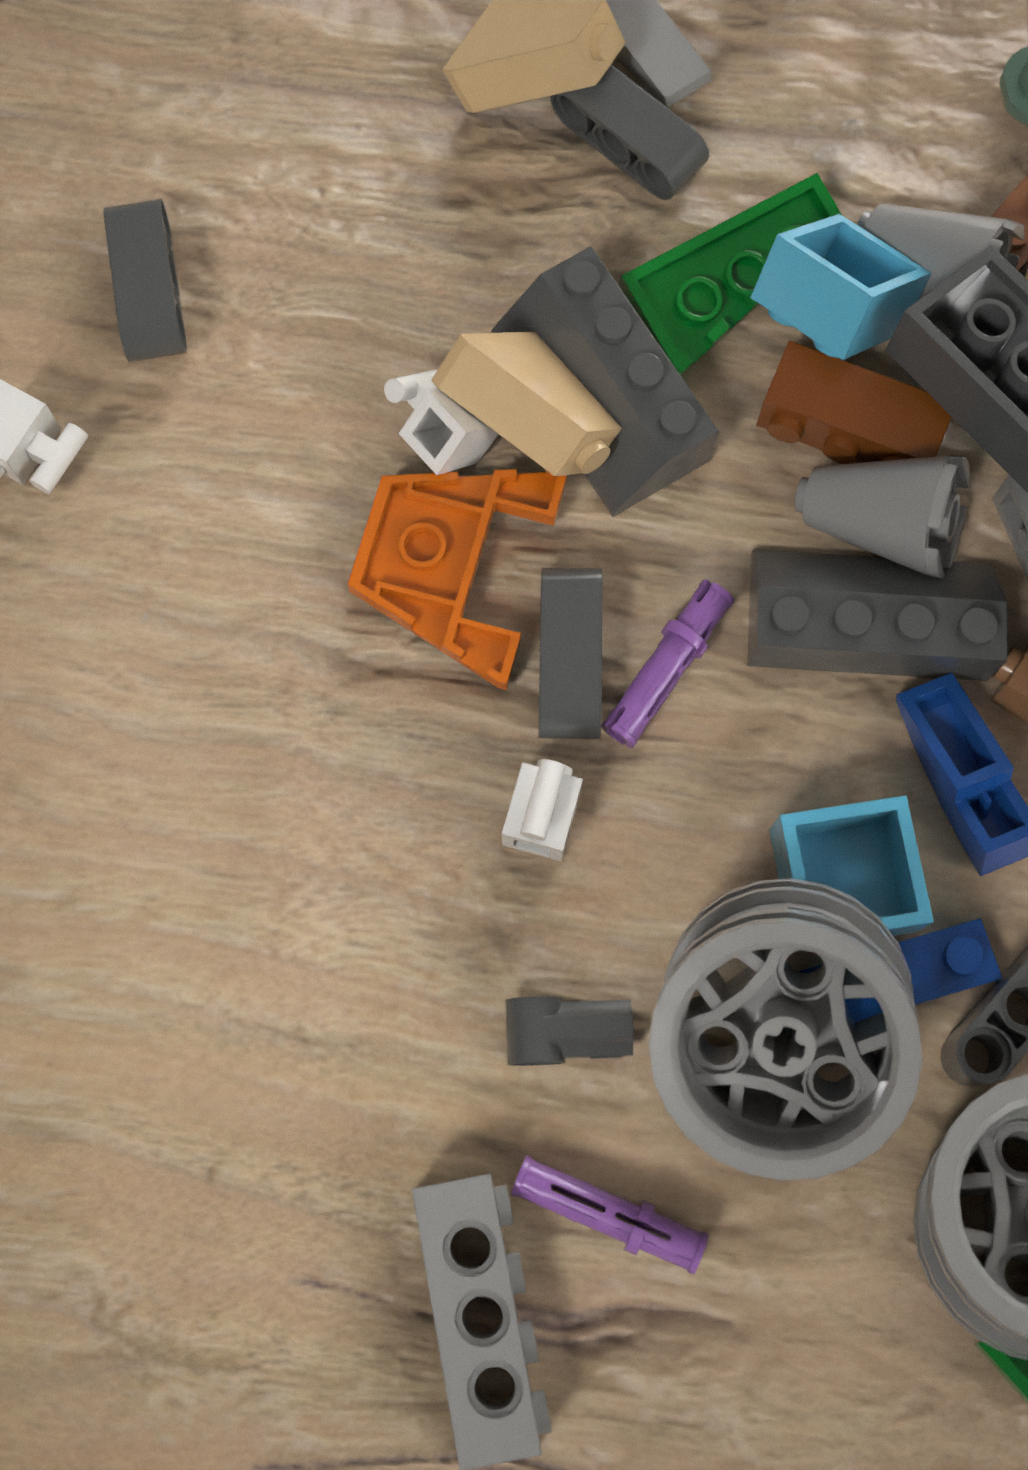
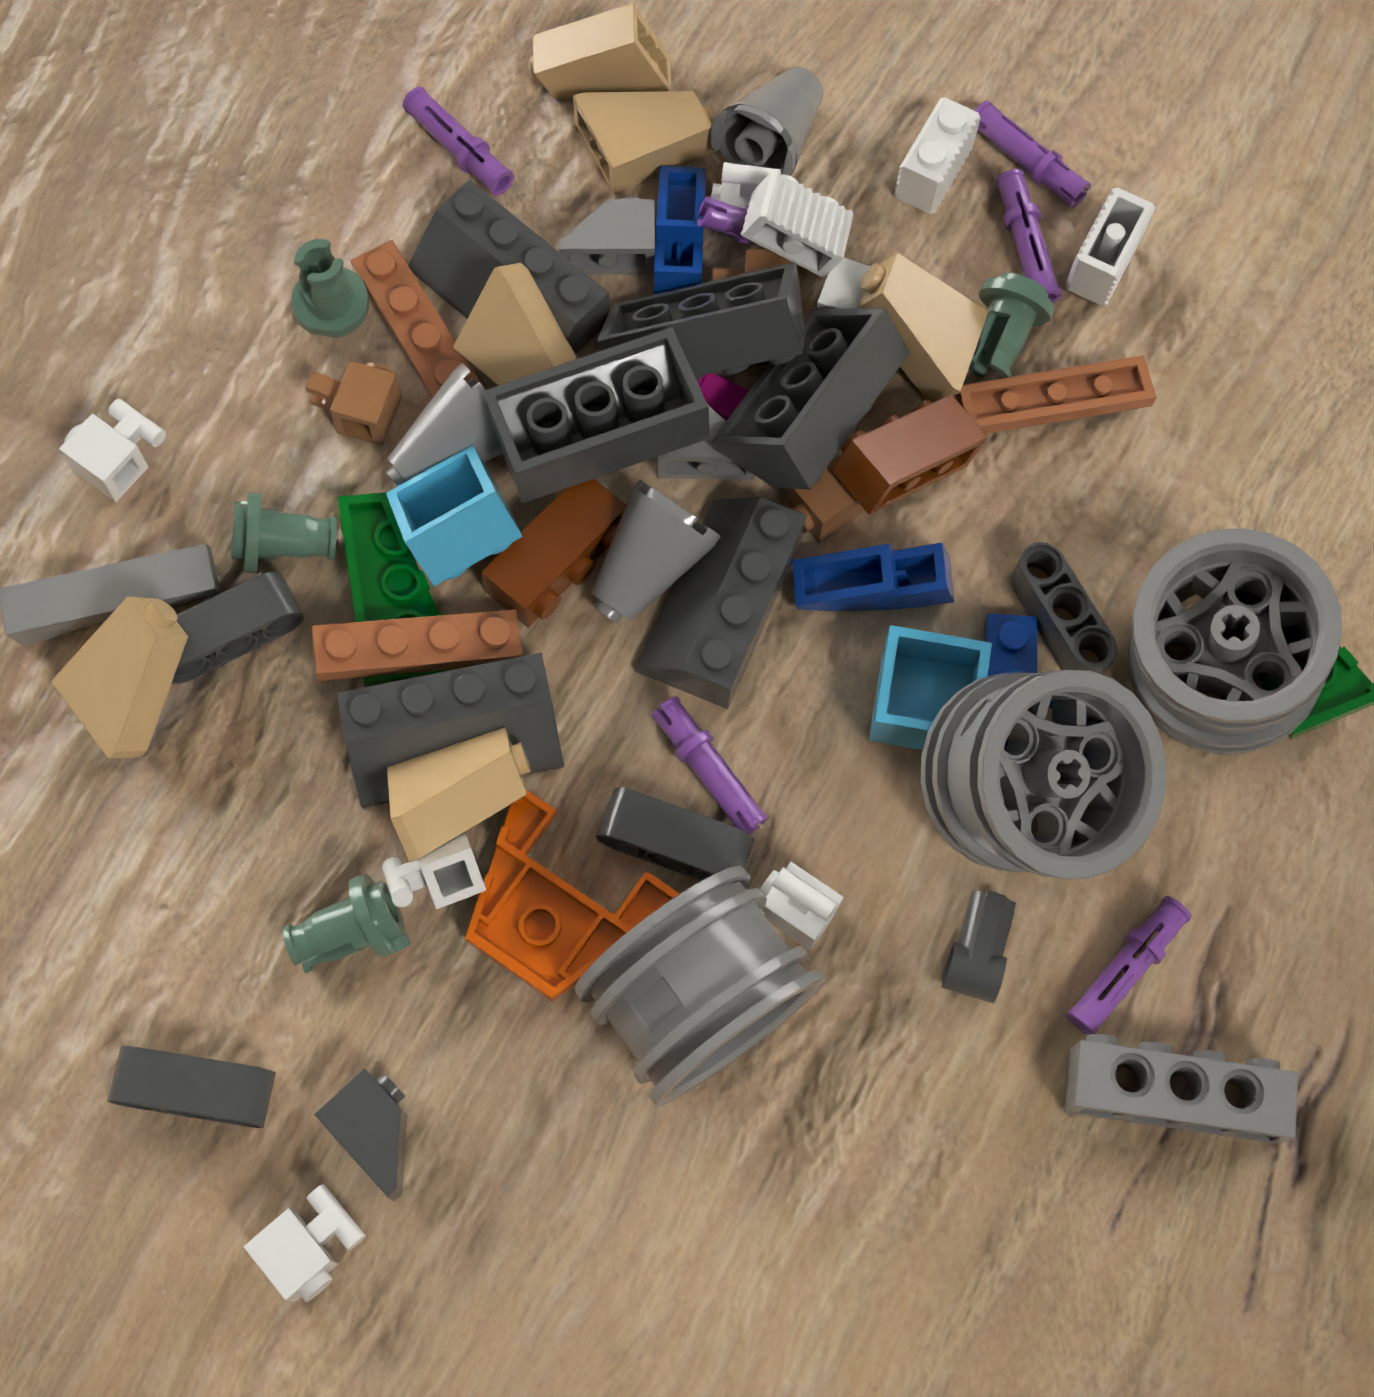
camera: 75 degrees left, 5 degrees down
(153, 460) = (370, 1128): none -> dark grey slope
(352, 359) = (349, 927): none -> sand green piece
(395, 711) = (698, 983): none -> light grey wheel
(682, 310) = (414, 644): none -> nougat plate
(744, 117) = (271, 534): none -> sand green piece
(941, 157) = (361, 403): none -> medium nougat brick

